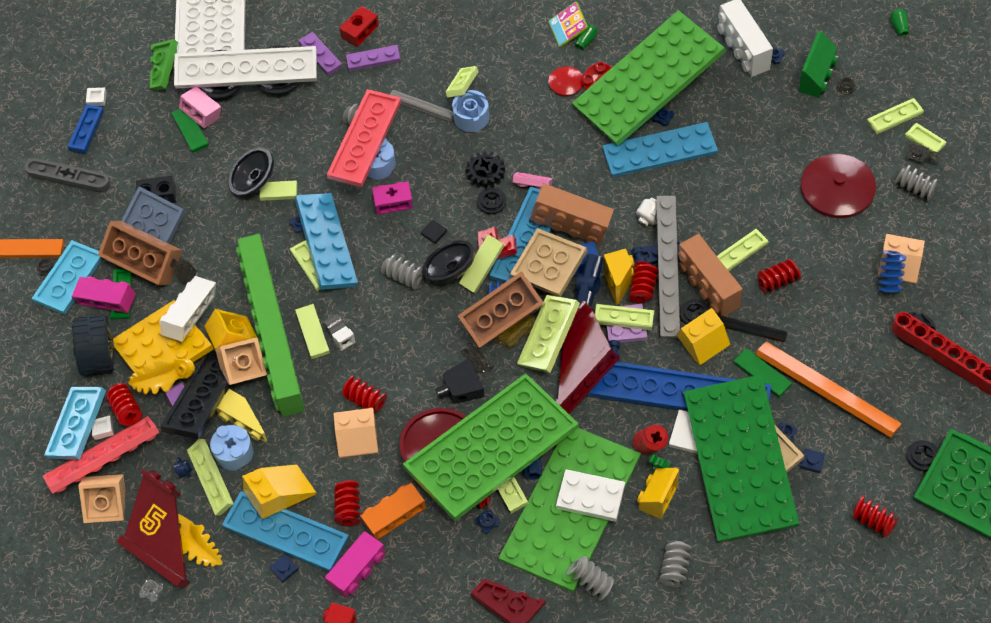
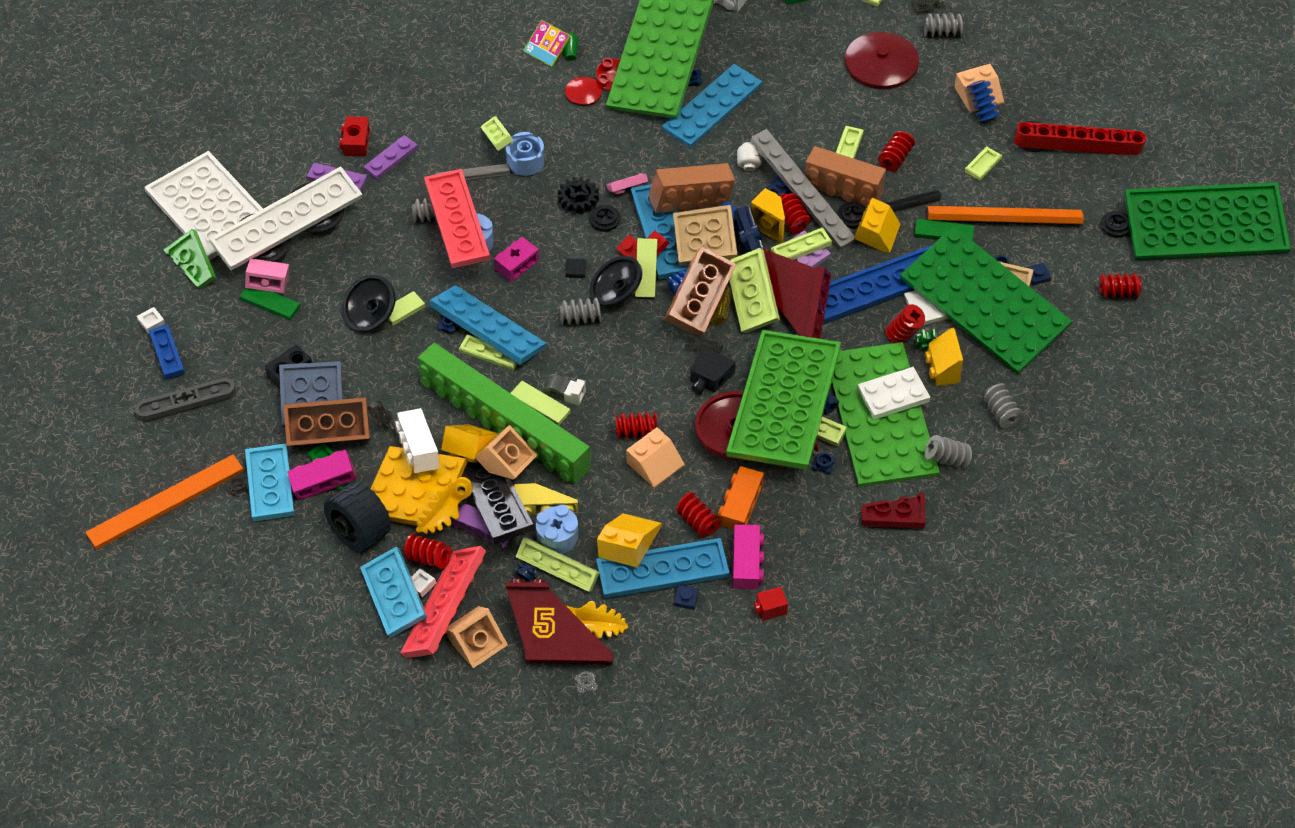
camera: 40 degrees left, 5 degrees down
(849, 330) = (983, 163): none -> yellowish green tile

